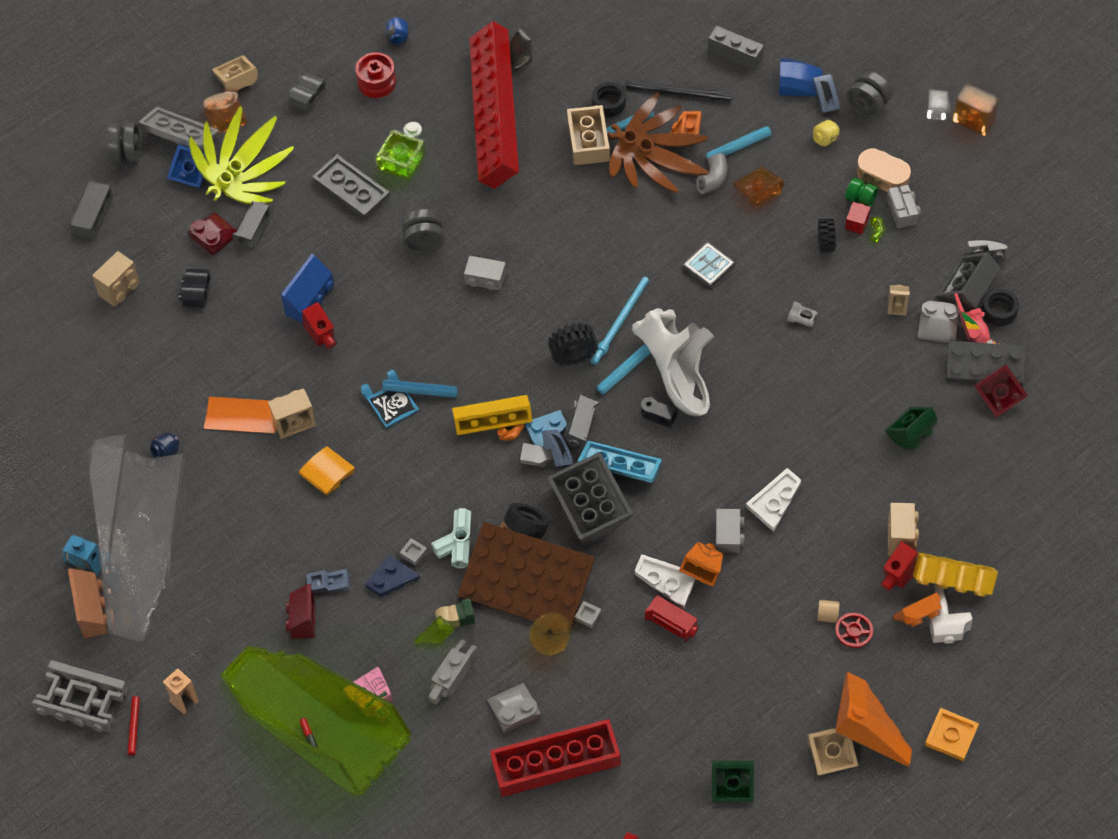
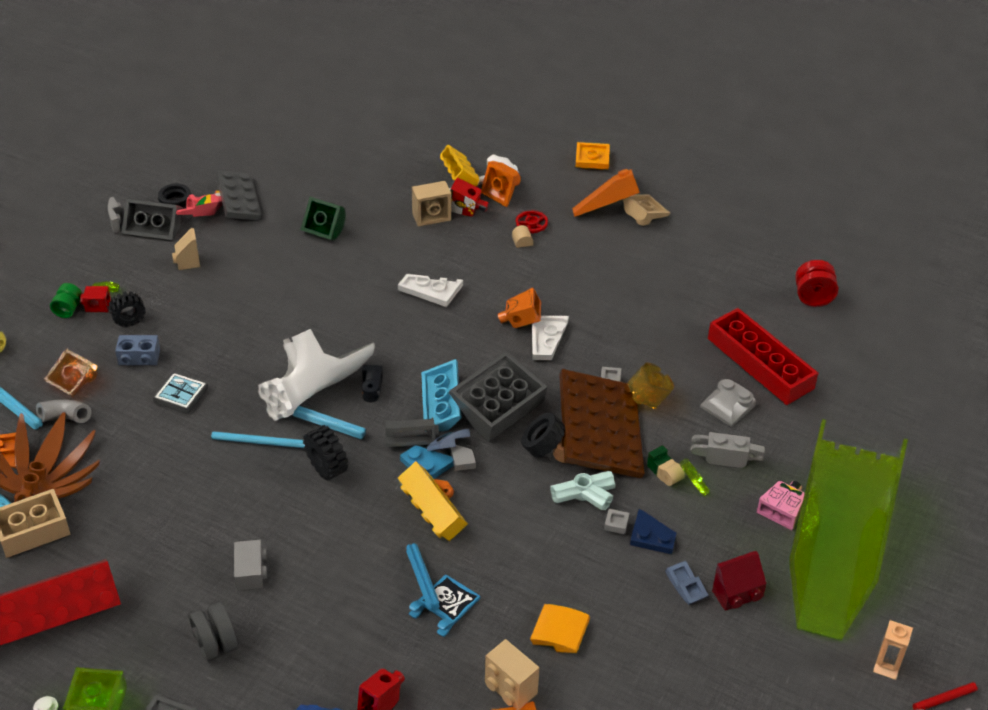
camera: 115 degrees left, 15 degrees down
(310, 738) = (855, 538): piece -> none
(672, 618) = (584, 322): red window -> none
(728, 530) = (479, 307): light grey brick -> none
(732, 780) = (707, 251): dark green brick -> none
(772, 243) = (137, 350): none -> sand blue brick
(797, 310) = (218, 319): light grey piece -> none
(882, 169) = (33, 293): light nougat brick -> none
(903, 206) = (76, 272): light grey brick -> none
(938, 321) = (206, 230): light grey slope -> none
(1000, 390) = (265, 178): dark red slope -> none

